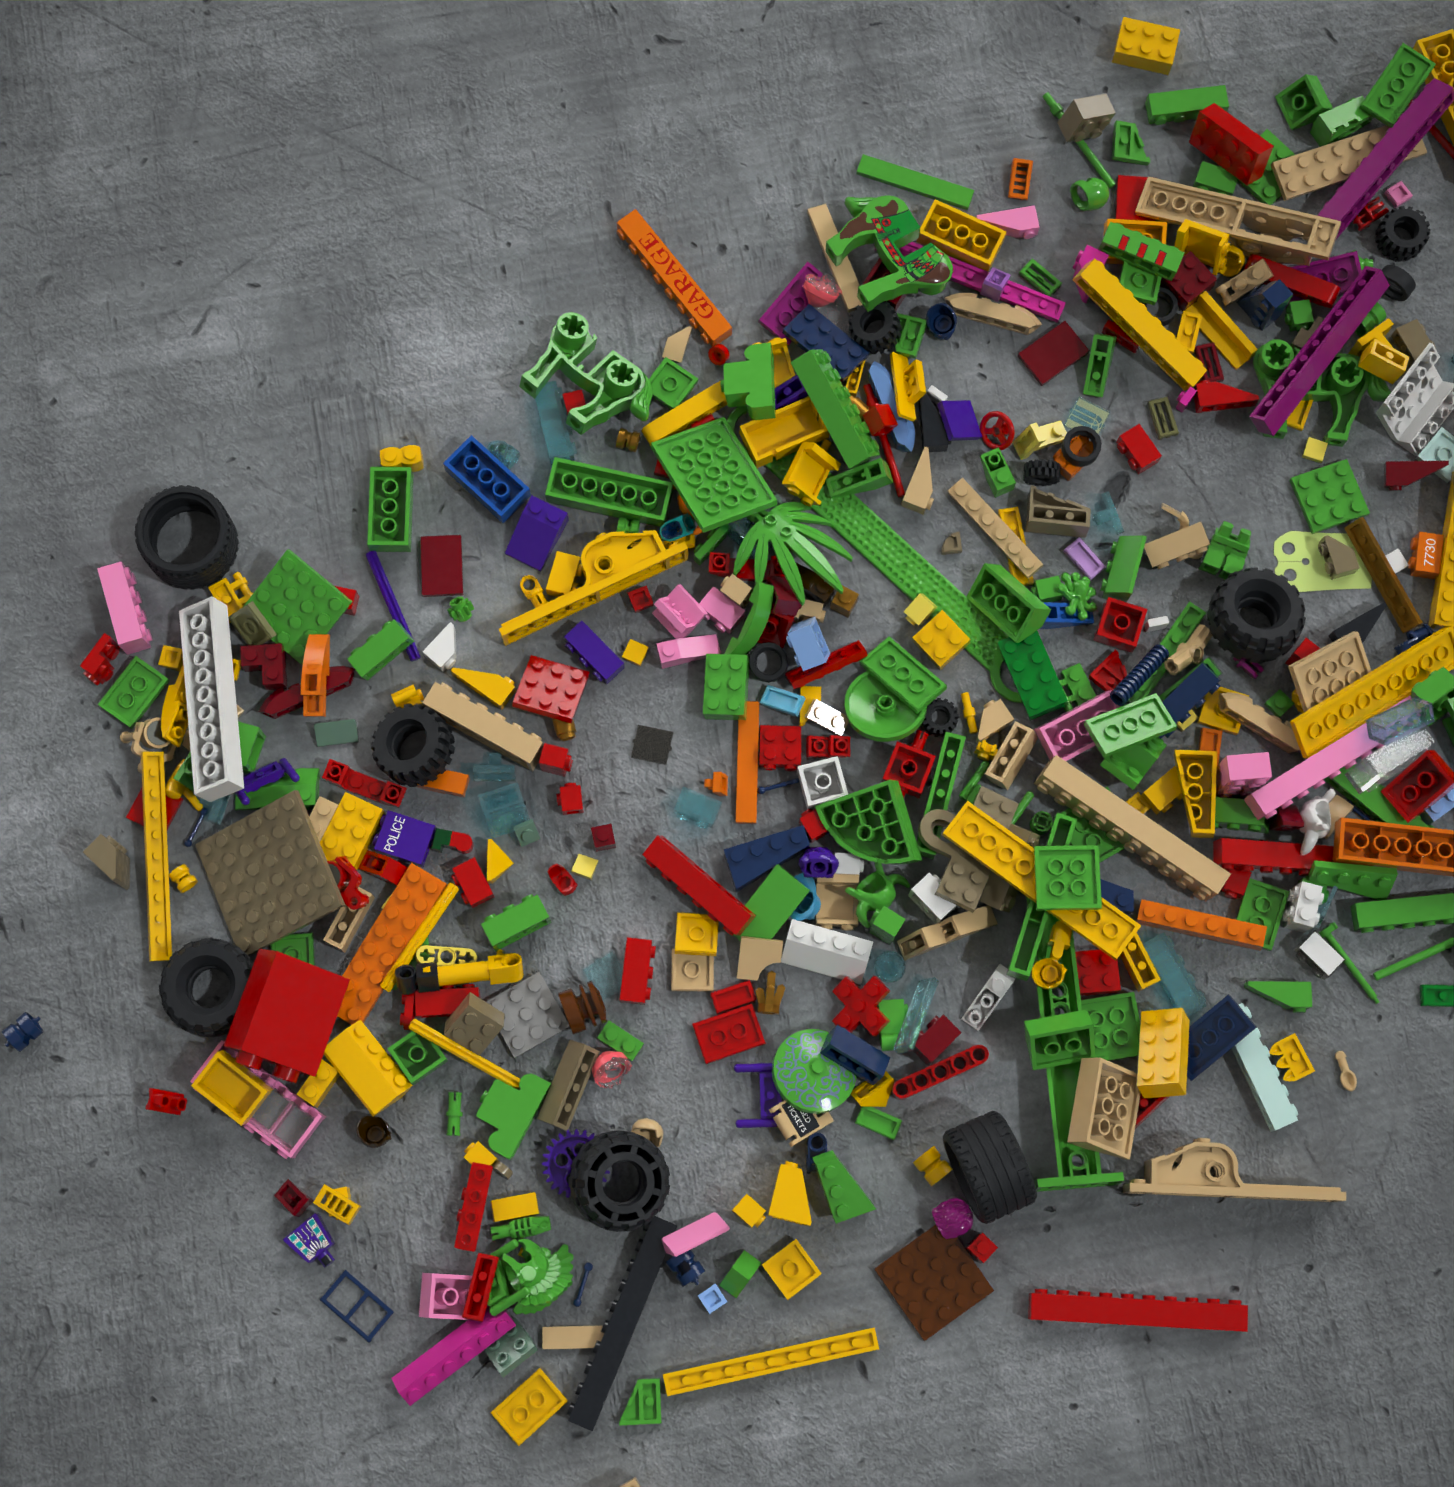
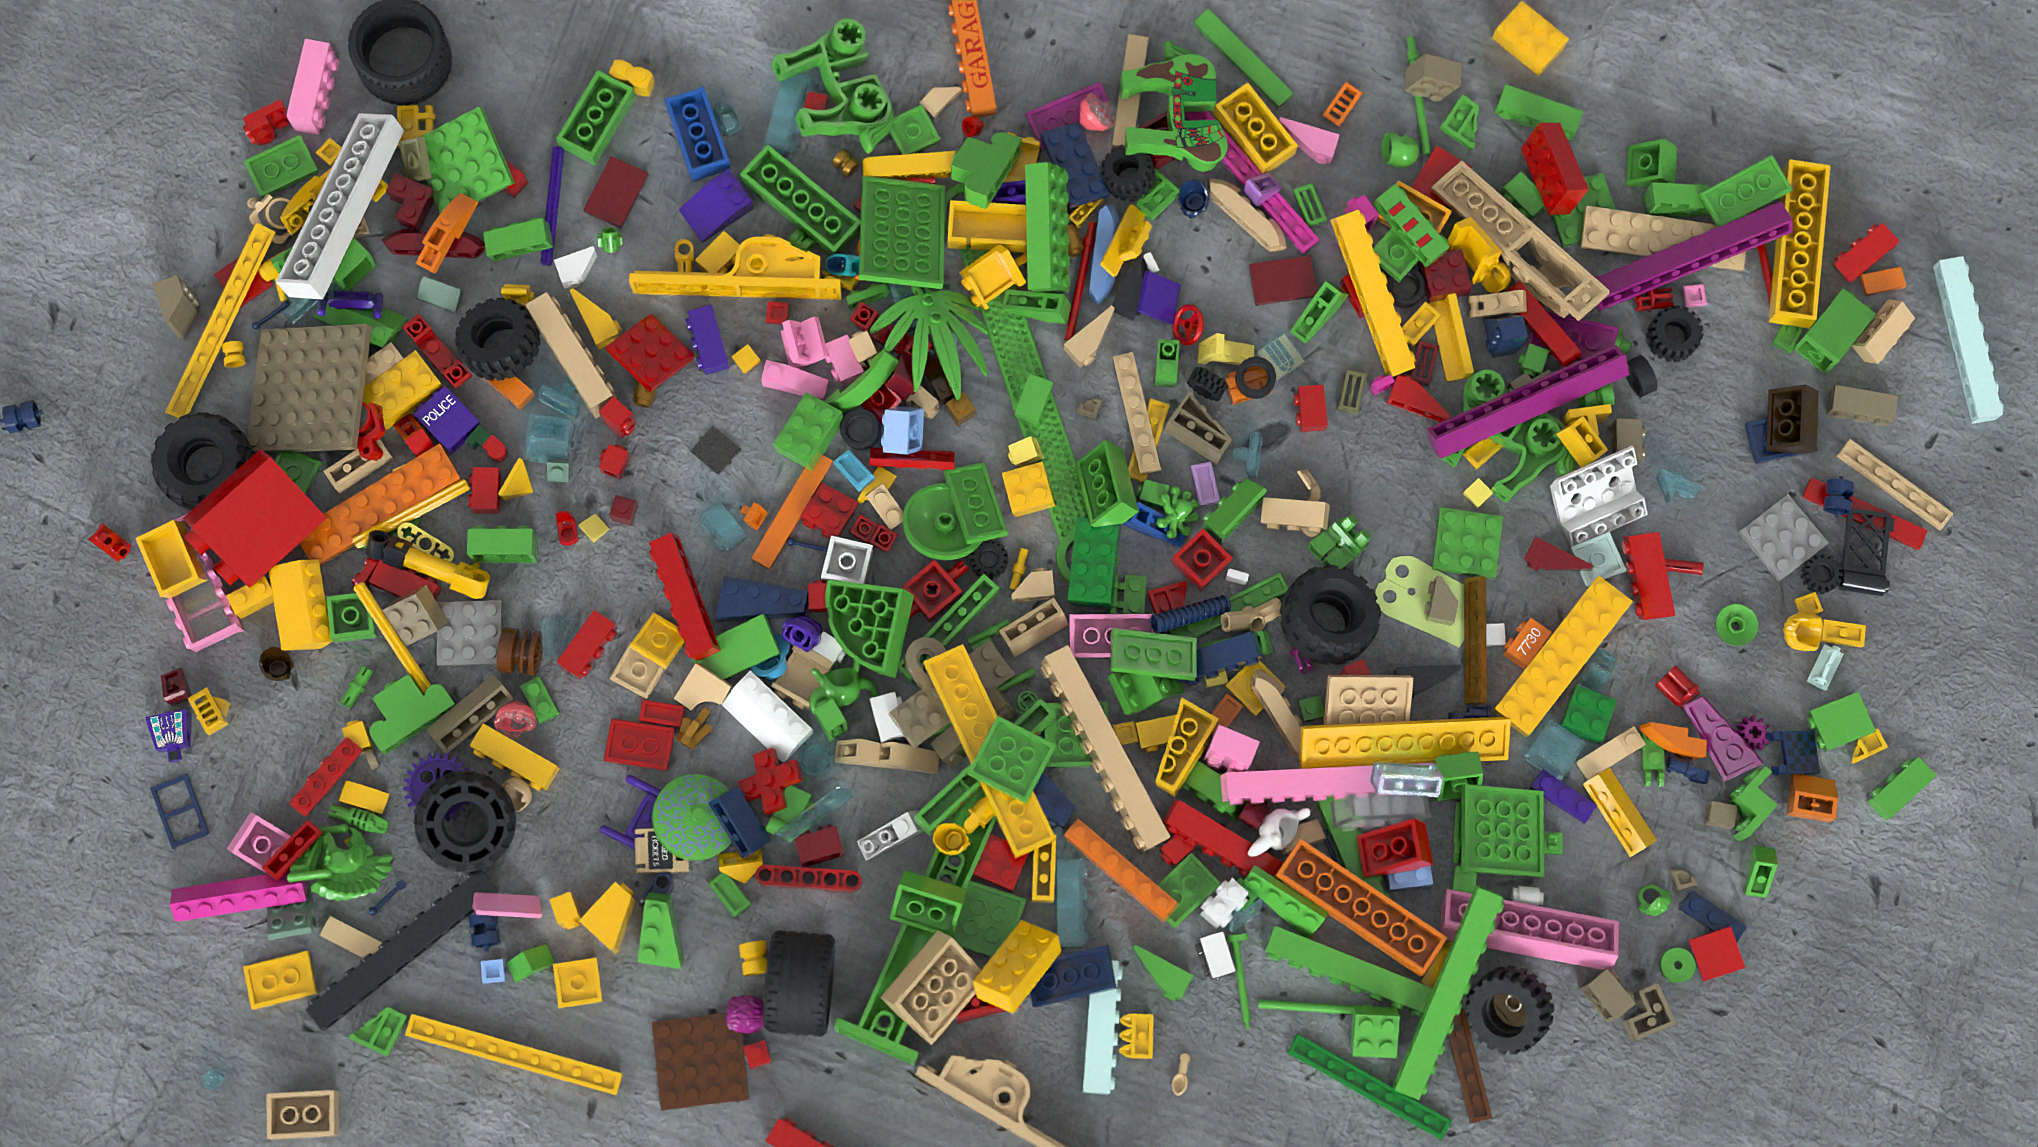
camera: 25 degrees right, 0 degrees up
(627, 1102) = (514, 757): none -> yellow brick
(880, 419) = (1083, 259): red brick -> none
(902, 561) = (1033, 399): none -> bright green brick
(986, 751) = (1012, 610): yellow plate -> none

